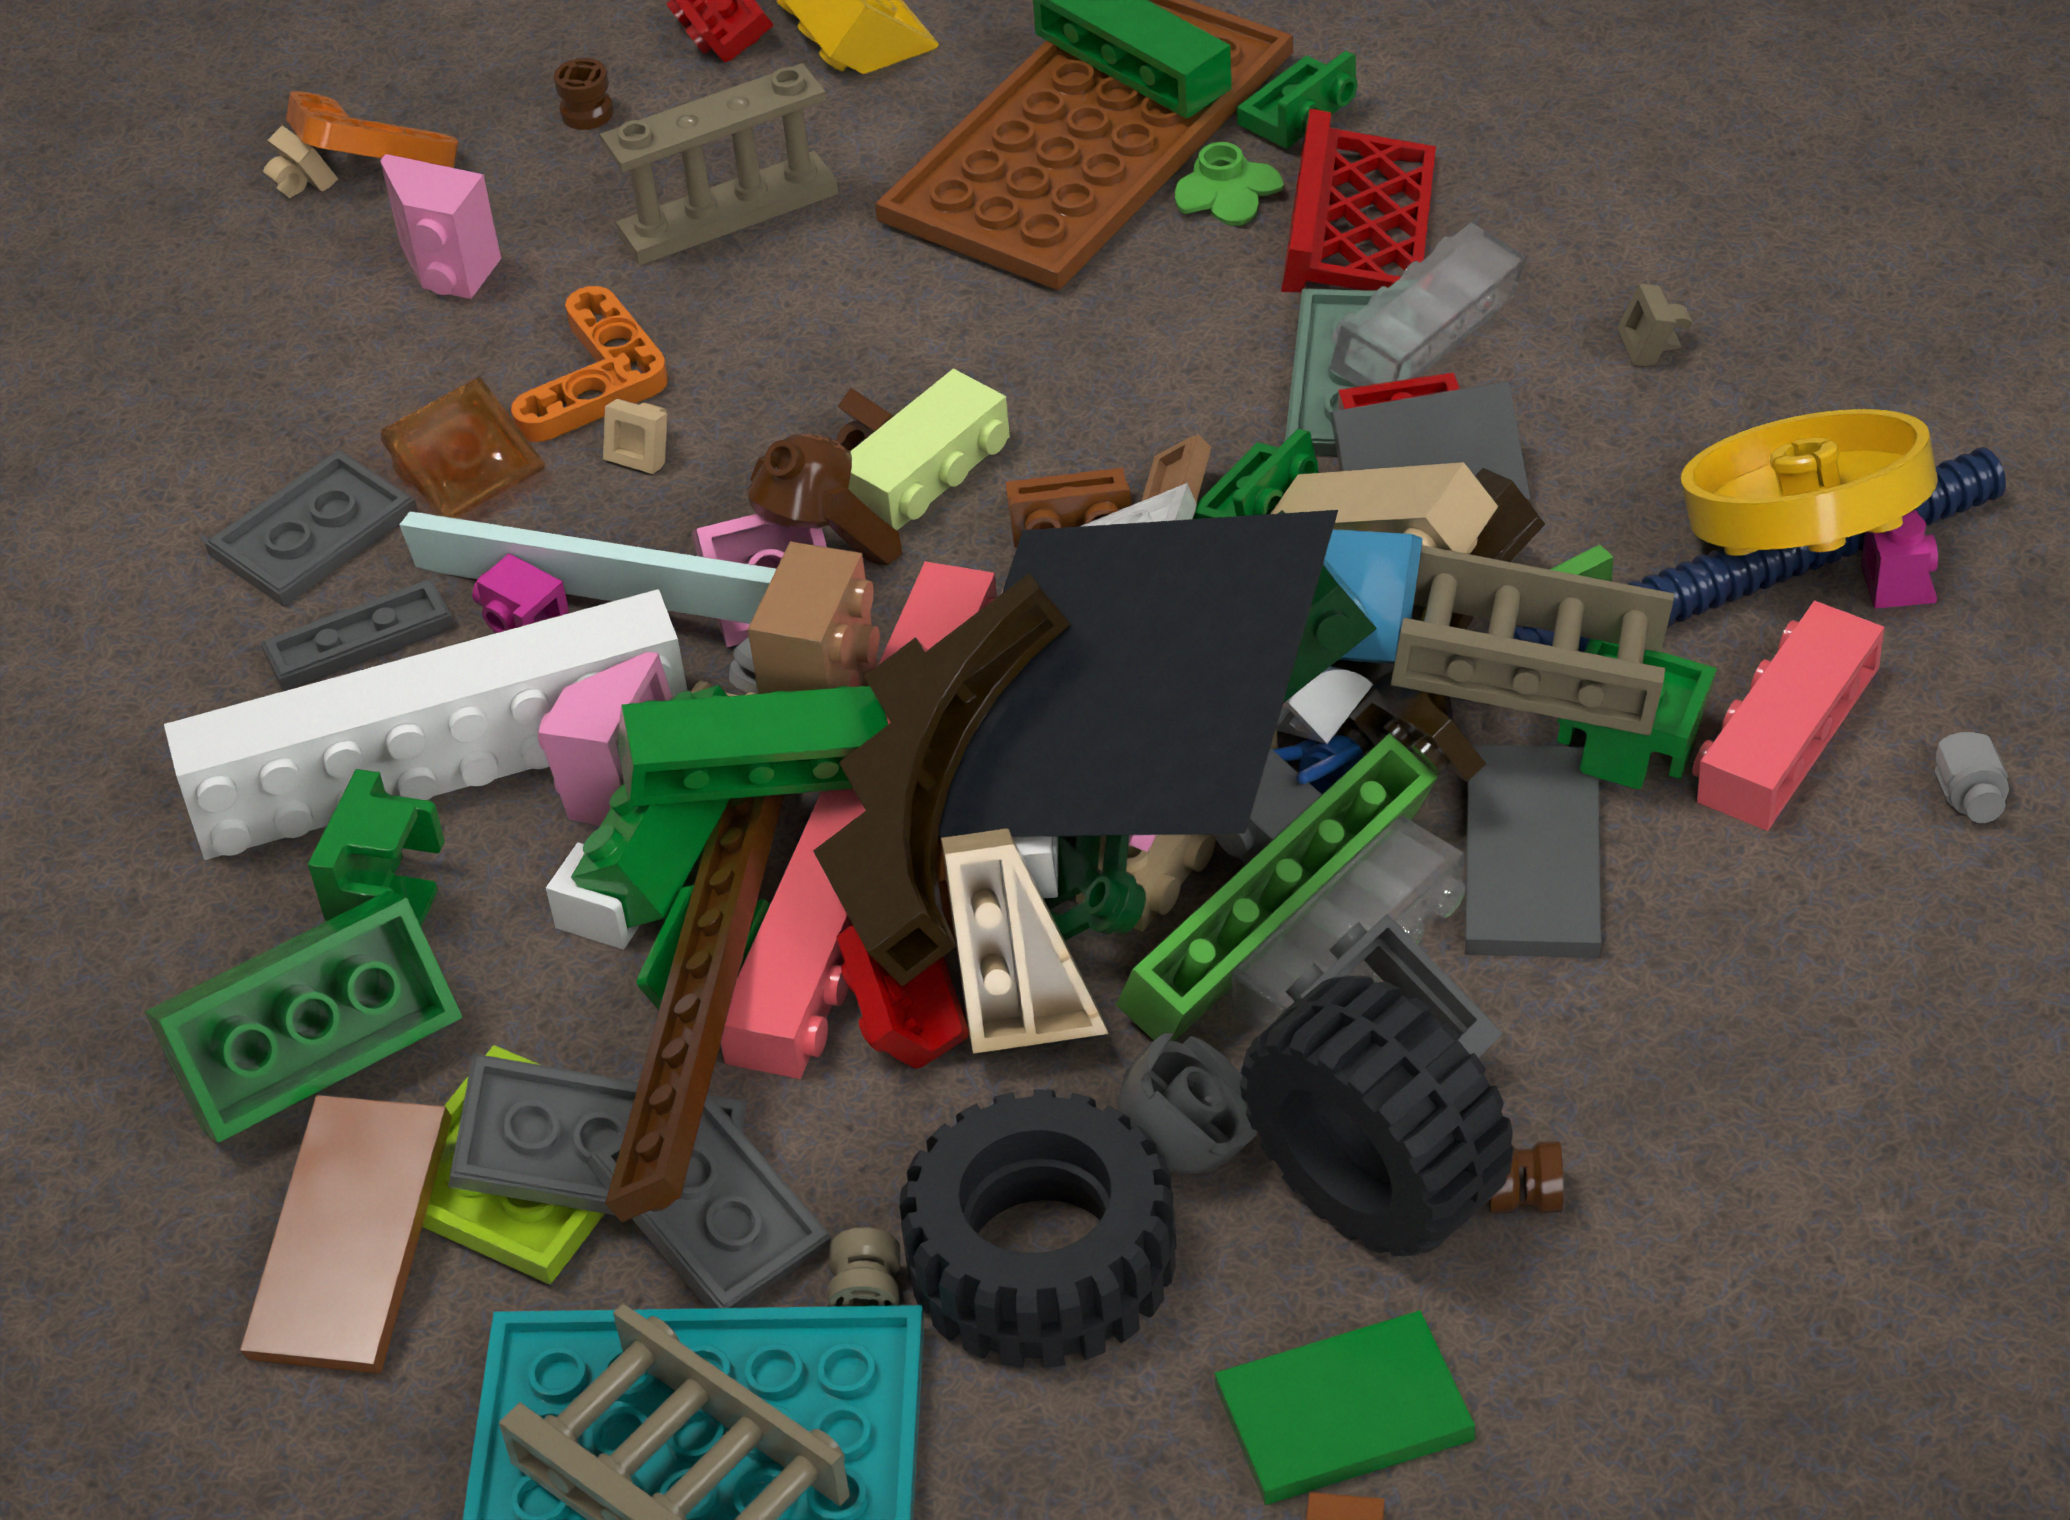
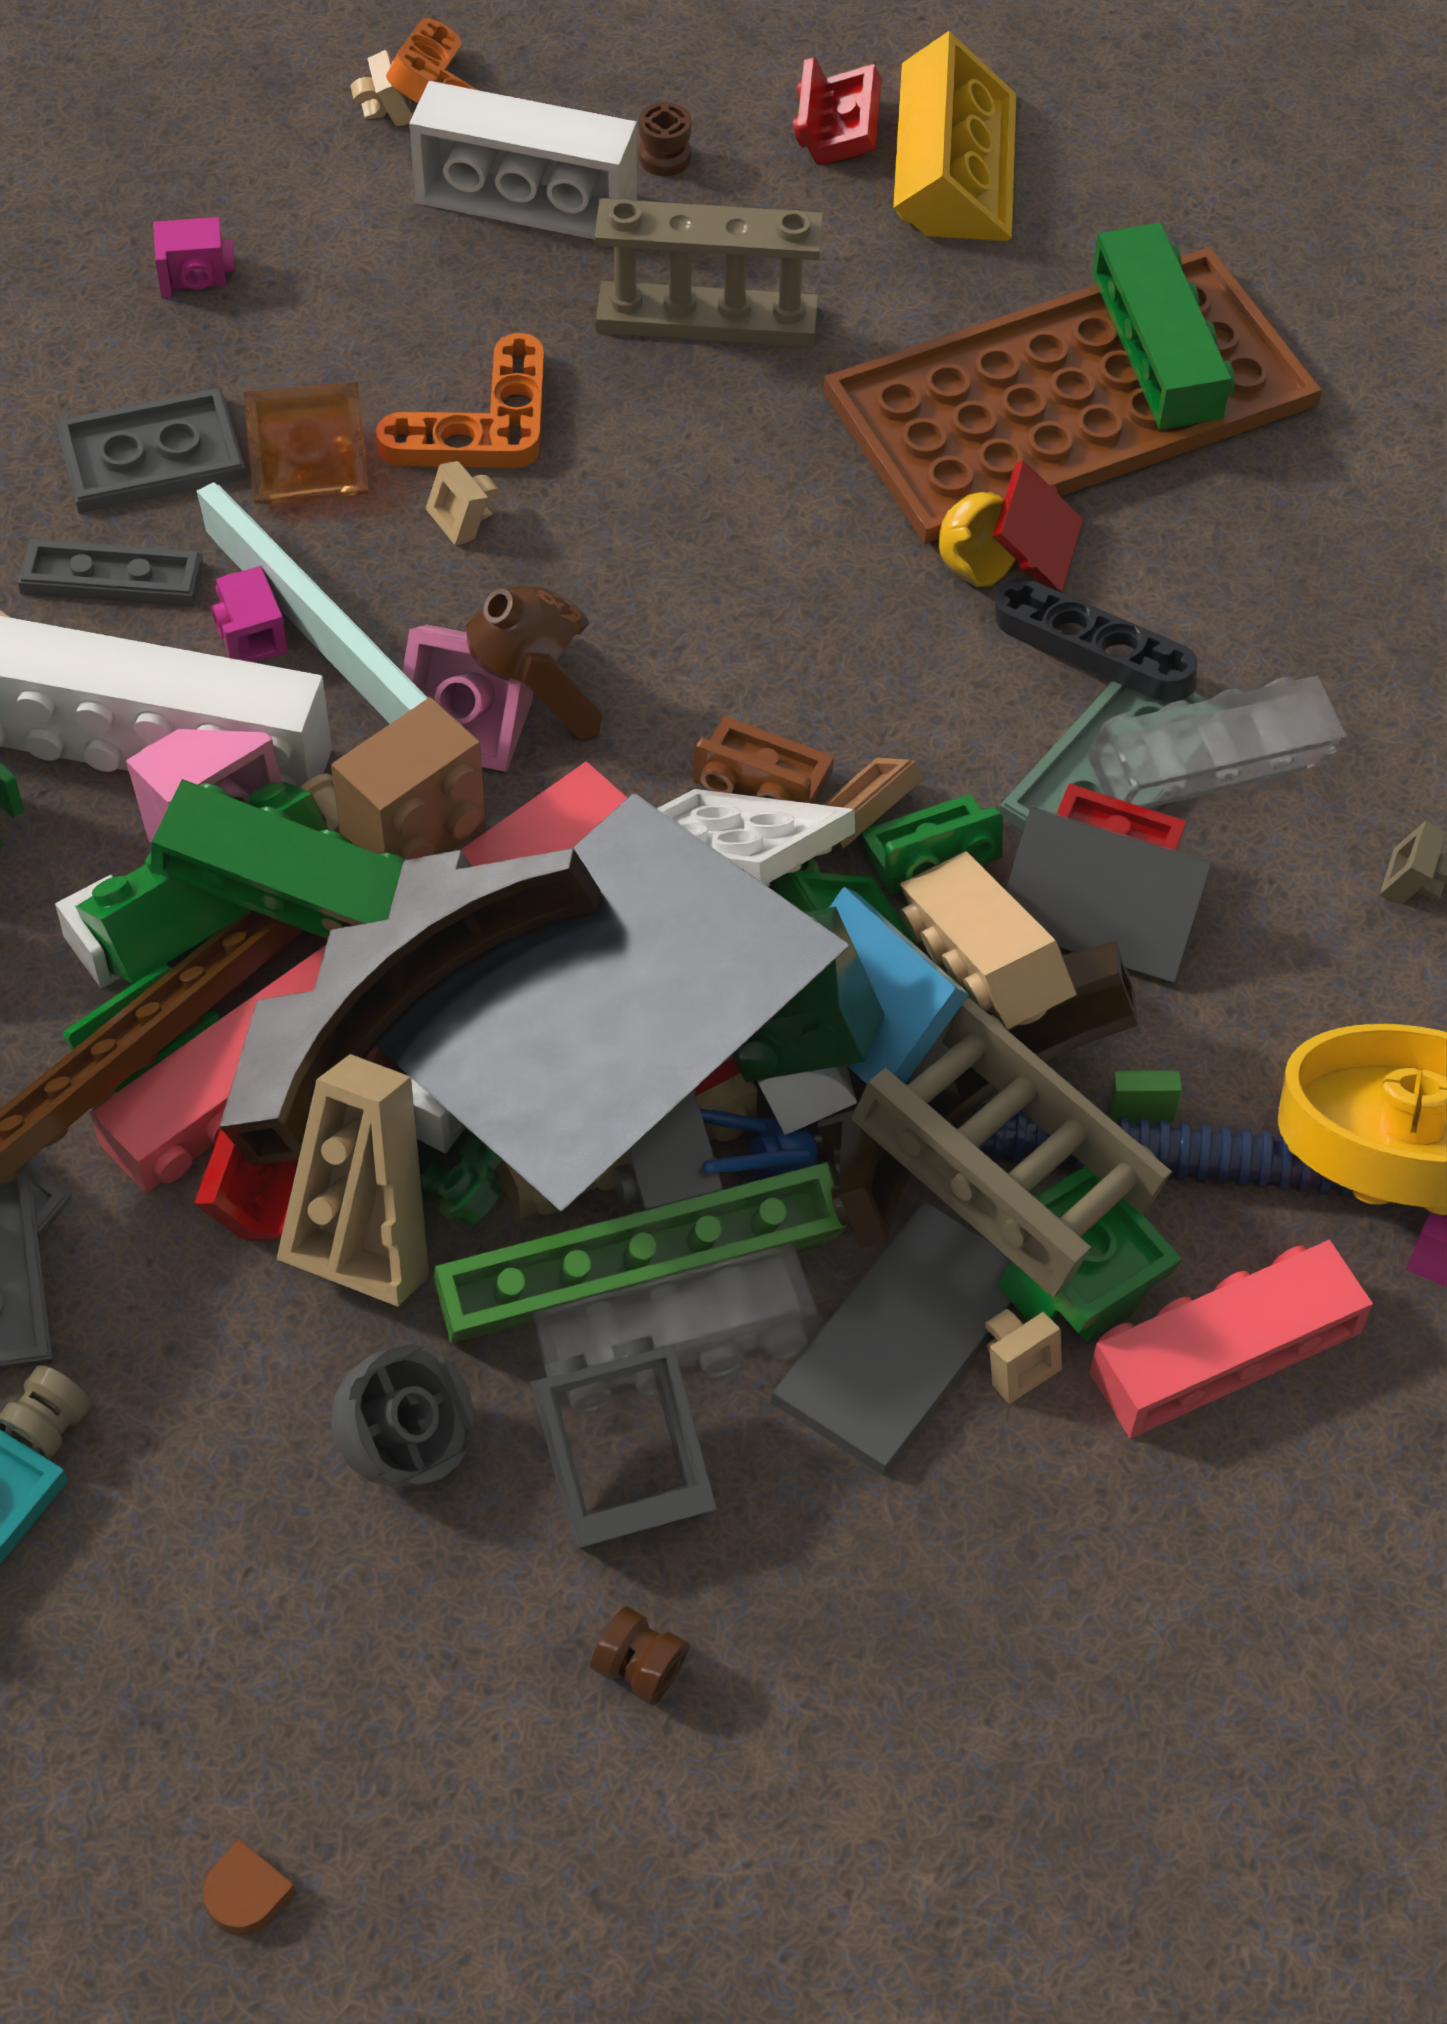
camera: 25 degrees right, 10 degrees up
(226, 359) = (192, 254): none -> dark pink brick
(442, 224) = (441, 216): bright pink slope -> none
(523, 138) = (519, 159): none -> white brick
(866, 416) = (660, 597): reddish brown tile -> none
(928, 447) = (681, 646): yellowish green brick -> none
(1054, 1298) = (214, 1537): black tyre -> none
(1103, 263) = (968, 542): none -> yellow hair
(1149, 230) = (1038, 527): none -> red piece
(1226, 185) = (1149, 520): bright green plate -> none
(1284, 104) = (1279, 460): green bracket -> none
(1316, 191) = (1218, 561): red fence -> none
(1344, 279) = (1155, 668): none -> black beam
(1344, 1407) = (333, 1775): green tile -> none
(1377, 1115) = (515, 1536): black tyre -> none
(1639, 806) = (1022, 1353): none -> tan tile
(1972, 775) = (1349, 1497): light grey arm -> none

